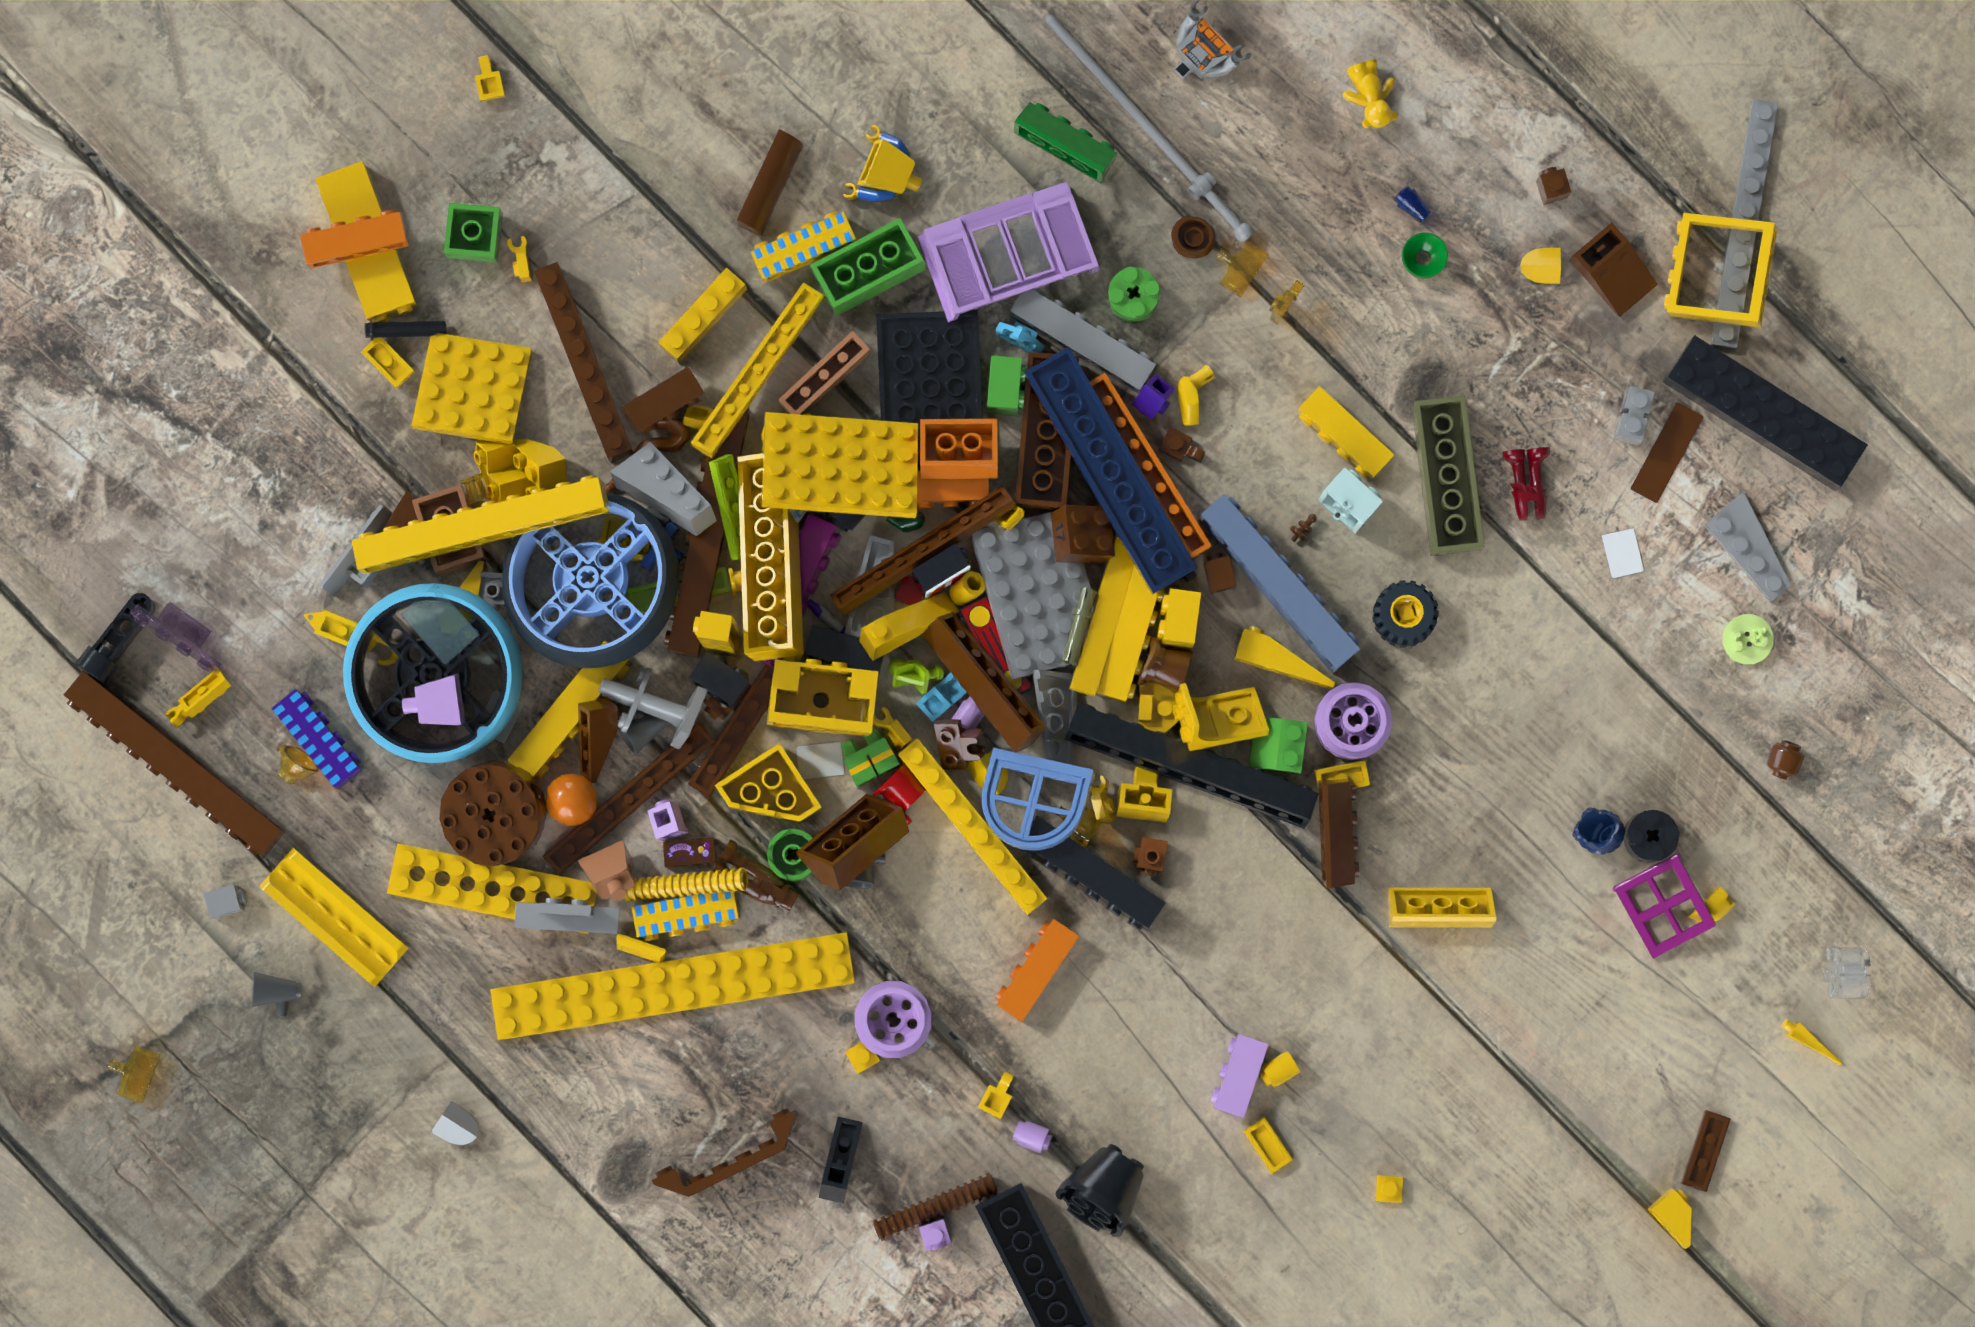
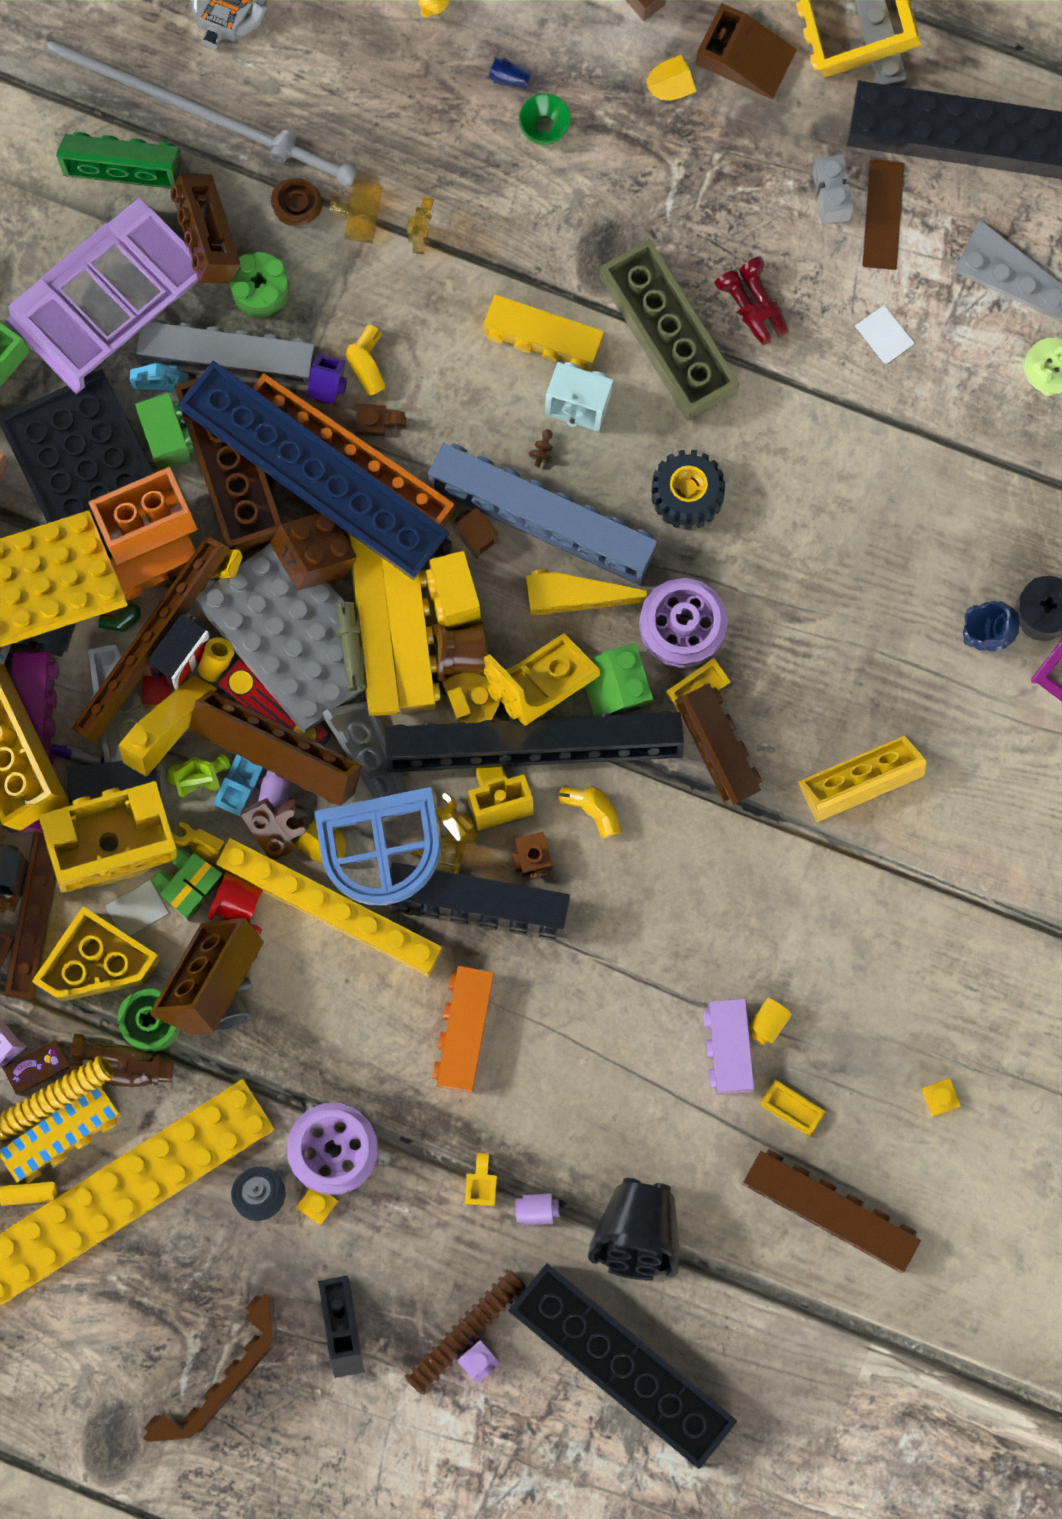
camera: 25 degrees left, 5 degrees down
(820, 1028) = (258, 1193): none -> black wheel
(1108, 232) = (205, 228): none -> reddish brown brick
(1219, 838) = (596, 805): none -> yellow arm
(1262, 1241) = (831, 1211): none -> reddish brown brick

